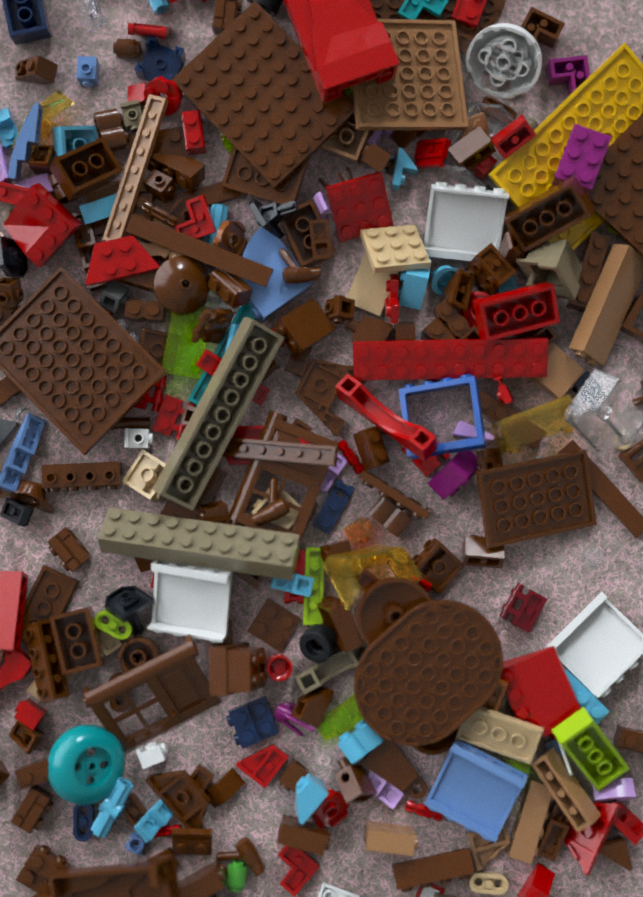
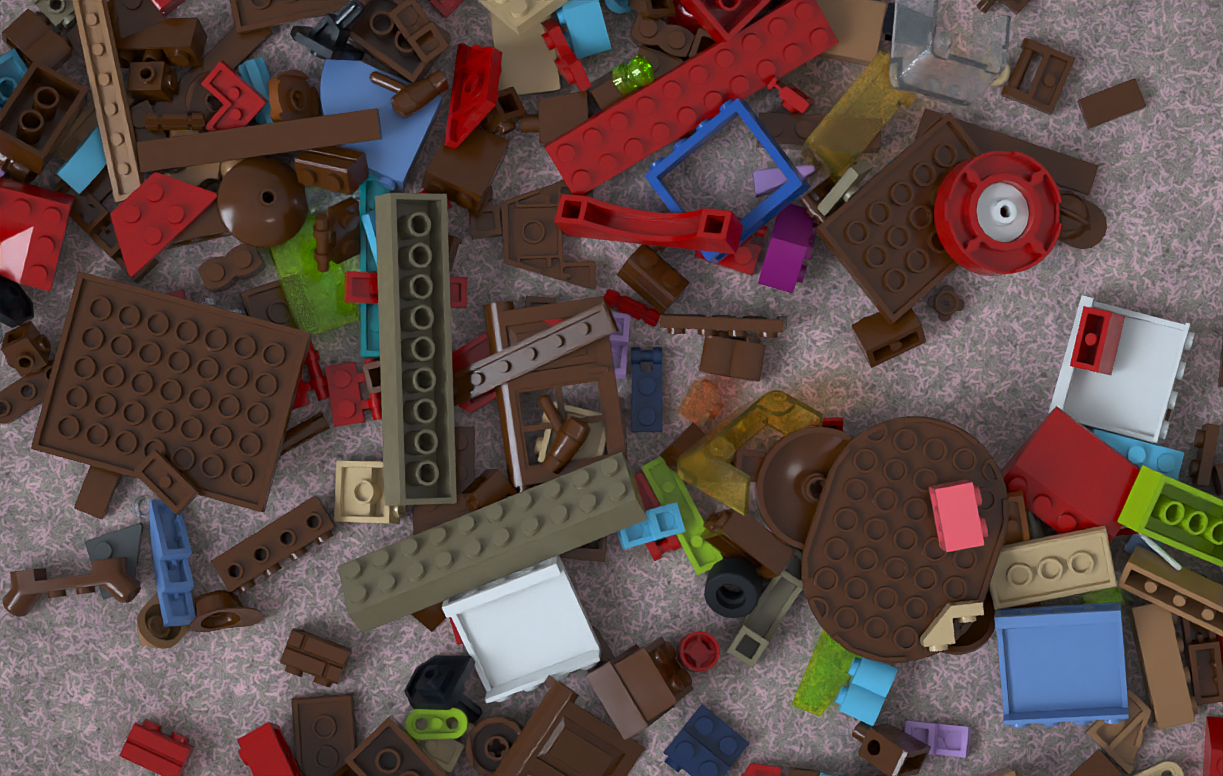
camera: 15 degrees left, 0 degrees up
(17, 512) = (212, 647): black slope -> none
(40, 408) = (166, 482): none -> reddish brown plate
(114, 297) = (177, 271): dark grey brick -> none
(131, 443) = (318, 461): white brick -> none
(273, 624) = (657, 599): reddish brown plate -> none
(283, 714) = (740, 711): magenta plant -> none
(313, 705) = (775, 678): reddish brown slope -> none
(331, 289) = (473, 90): none -> red wing
(395, 768) = (934, 699): reddish brown piece -> none
(419, 736) = (941, 630): none -> tan slope
(422, 810) = (1008, 736): red axle -> none
(423, 330) = (633, 74): none -> clear neon green wheel
(437, 564) = (836, 387): reddish brown plate -> none
(465, 678) = (957, 515): none -> coral brick
(506, 458) = (845, 187): none -> dark tan plate
(528, 610) = (997, 379): dark red plate -> none
(529, 553) = (946, 294): none -> reddish brown plate
(581, 520) = (998, 213): none -> red piece
(596, 622) = (1097, 340): none -> red brick
(614, 723) = (1206, 442): none -> reddish brown plate
(618, 545) = (1081, 221): none -> reddish brown piece

